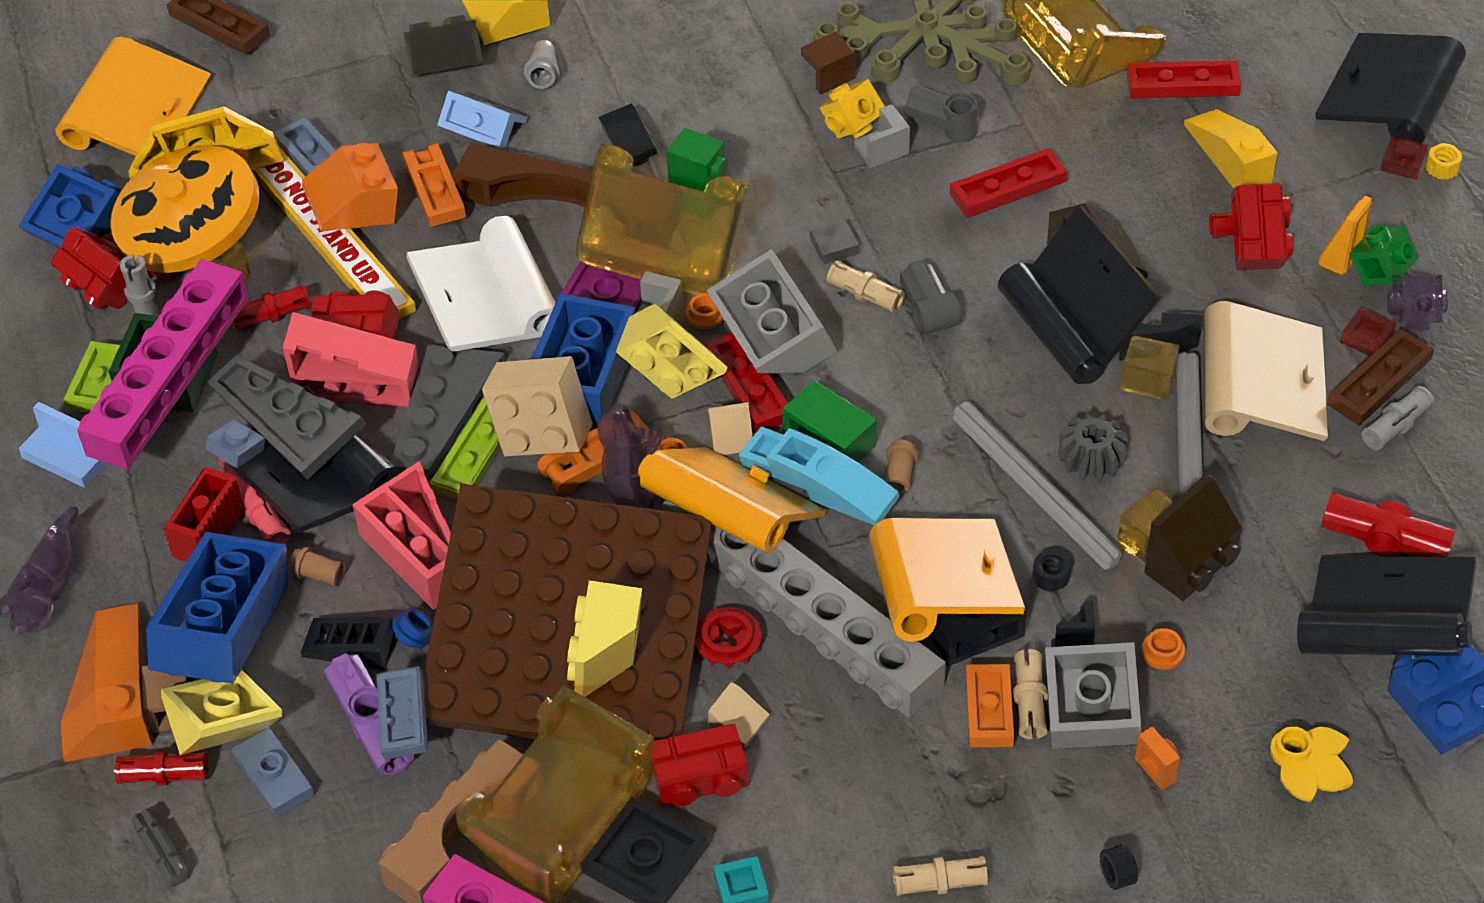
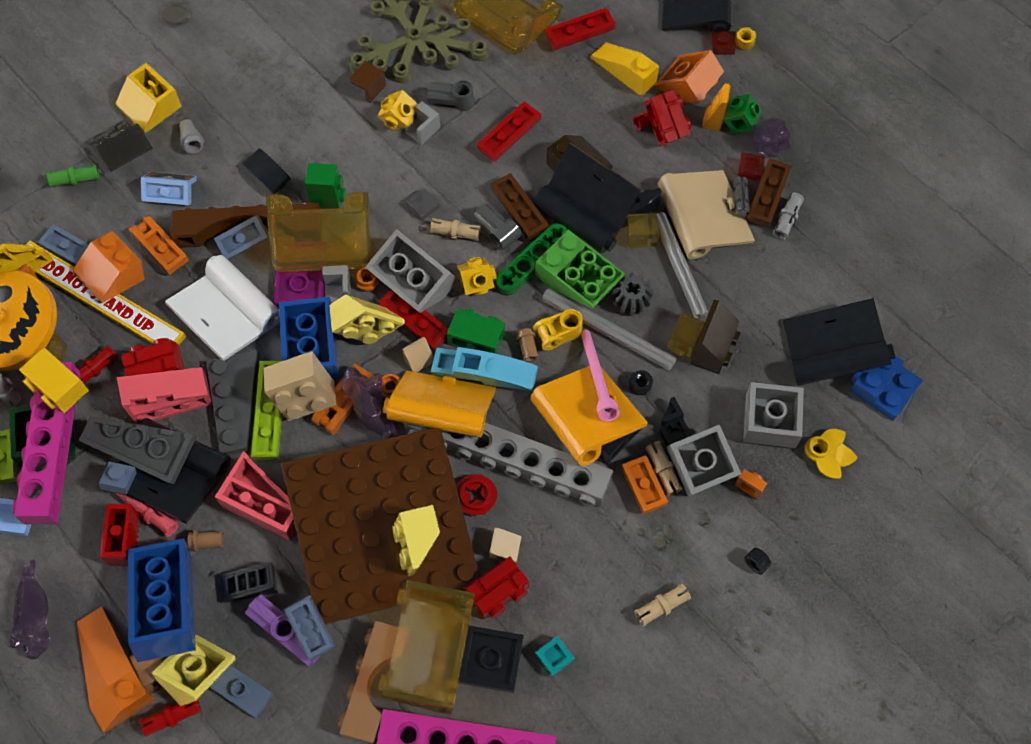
camera: 25 degrees left, 15 degrees up
(206, 281) = (53, 380): none -> yellow brick
(360, 68) = (73, 175): none -> bright green pin
(412, 628) = (285, 560): blue plate -> none
(550, 205) = (242, 237): none -> sand blue plate
(850, 354) = (476, 276): none -> yellow brick
(959, 354) = (526, 256): none -> green beam
(961, 459) = (554, 329): none -> yellow piece
(970, 564) = (606, 407): none -> bright pink piece
(976, 284) = (519, 206): none -> reddish brown plate
(1019, 385) = (577, 270): none -> bright green slope
(1163, 649) = (723, 412): orange plate -> none
(1236, 672) = (773, 415): none -> light grey brick
(1330, 186) = (691, 76): none -> orange slope
(1331, 368) = (741, 196): none -> dark grey axle
(1387, 528) = (812, 290): red piece -> none

